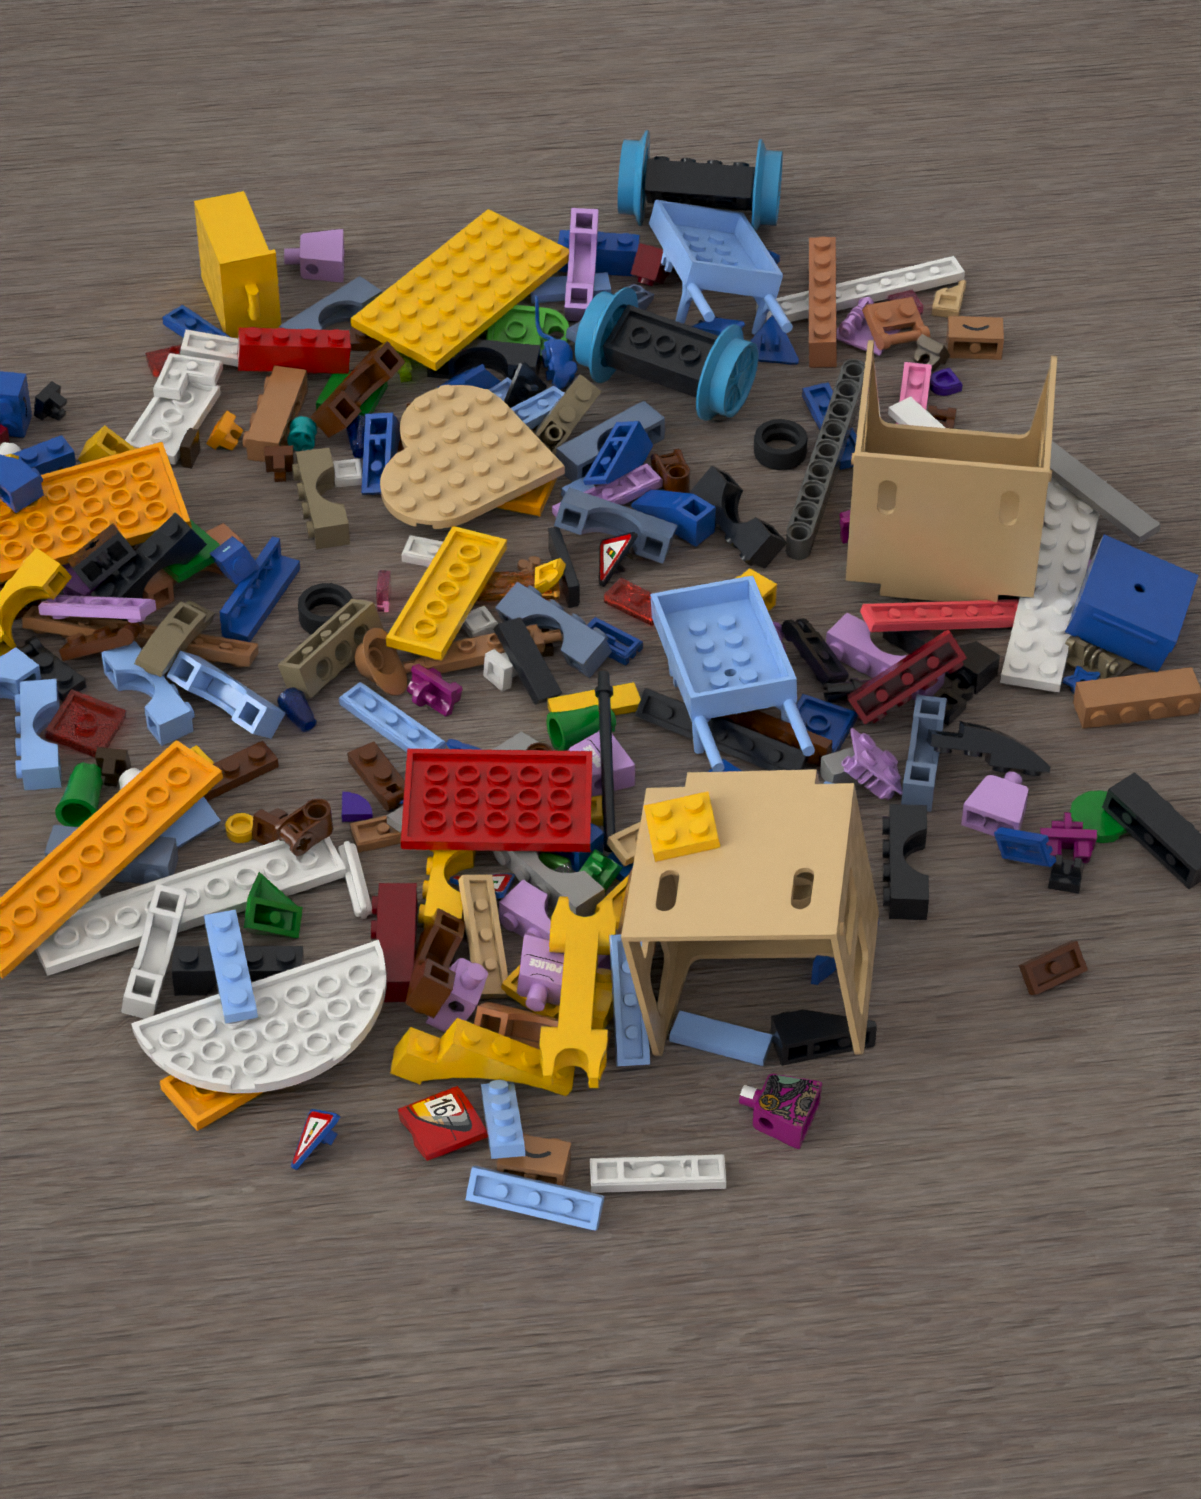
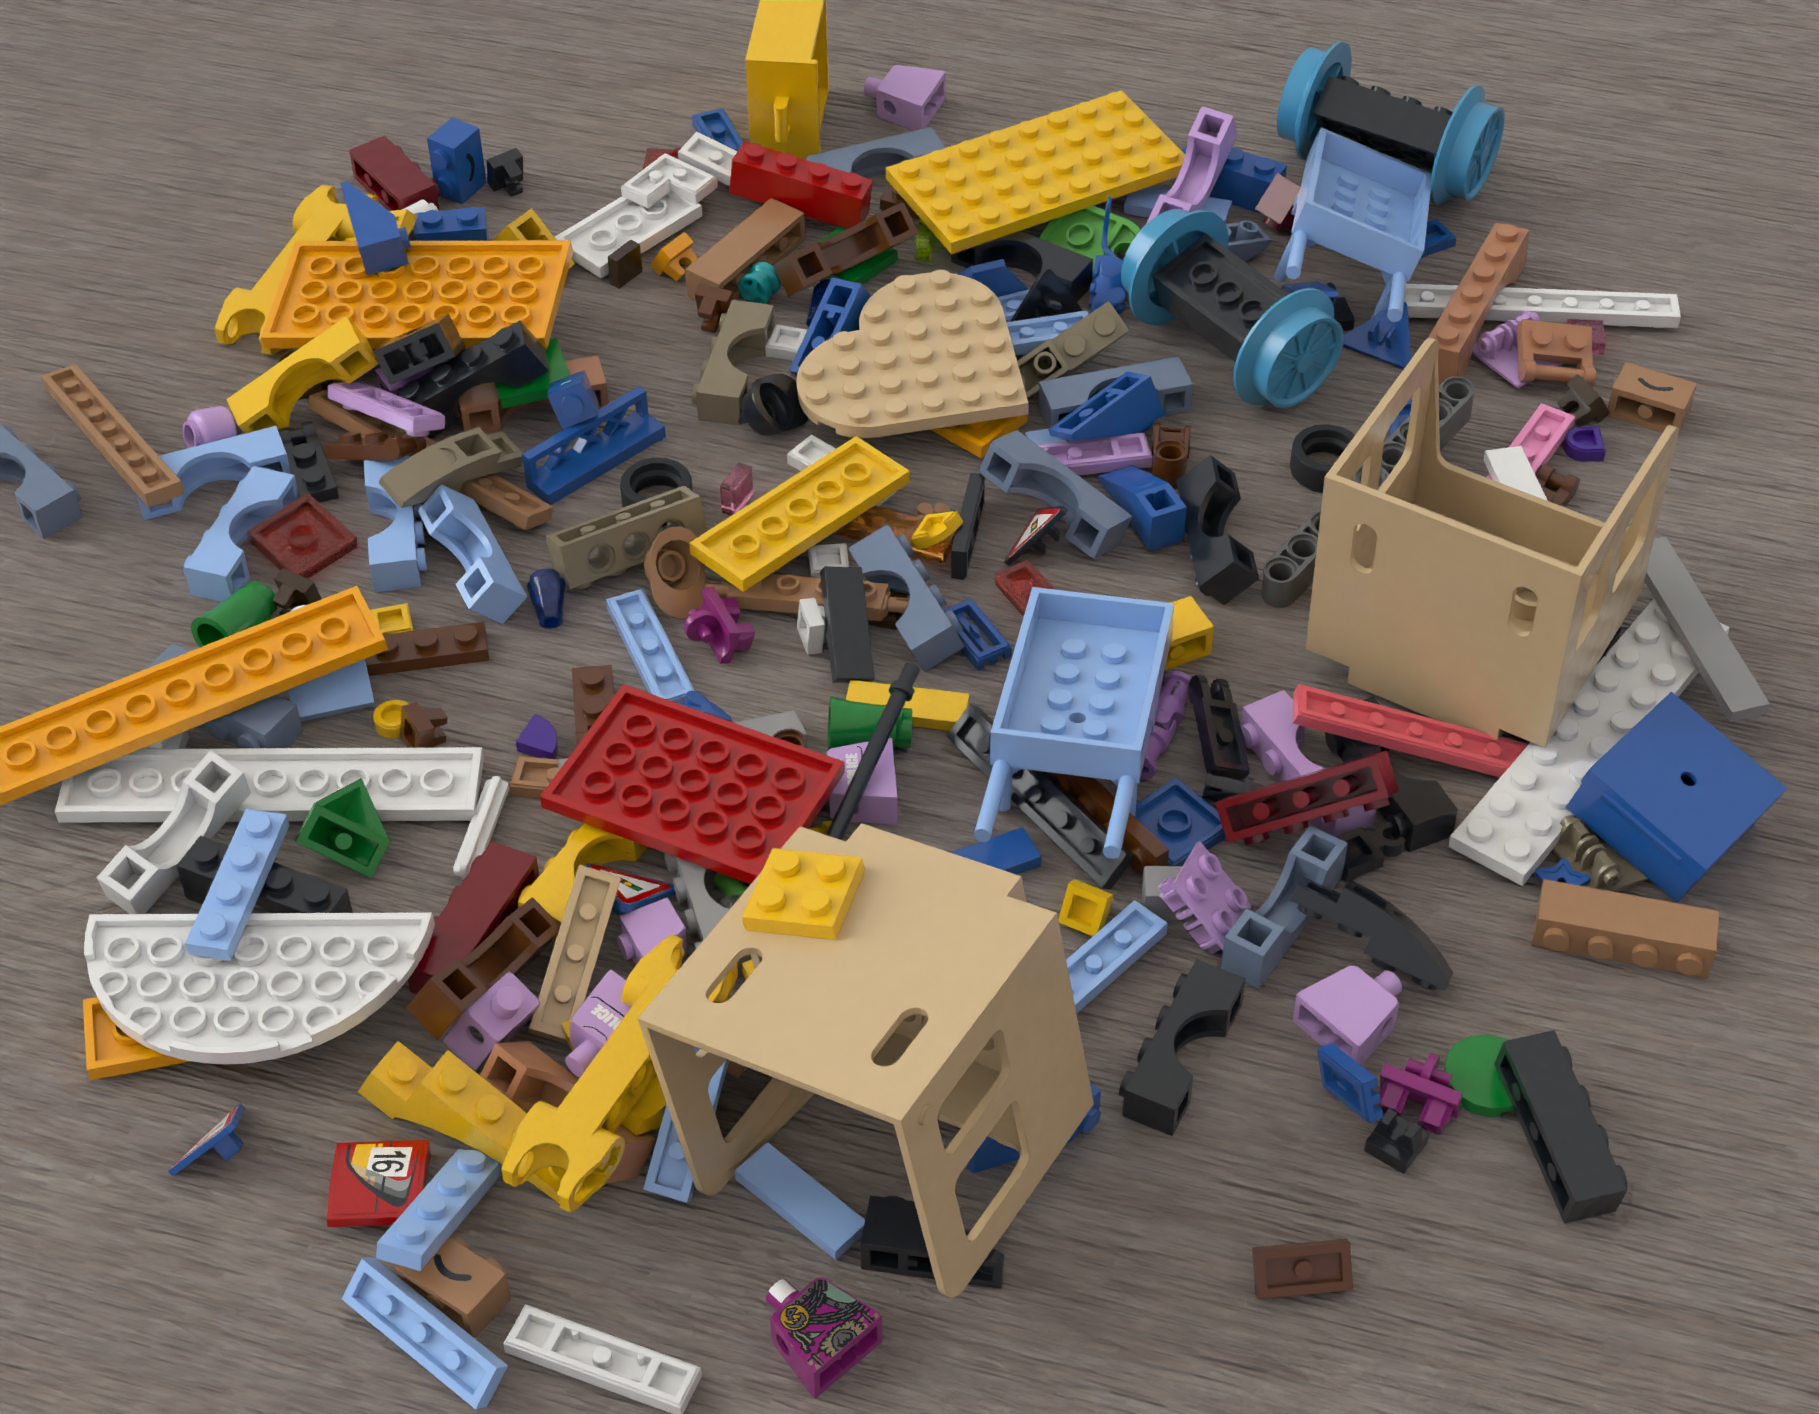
camera: 25 degrees right, 0 degrees up
(306, 826) = (455, 741): reddish brown piece -> none
(372, 522) = (772, 405): none -> black piece
(949, 301) = (1645, 347): tan tile -> none

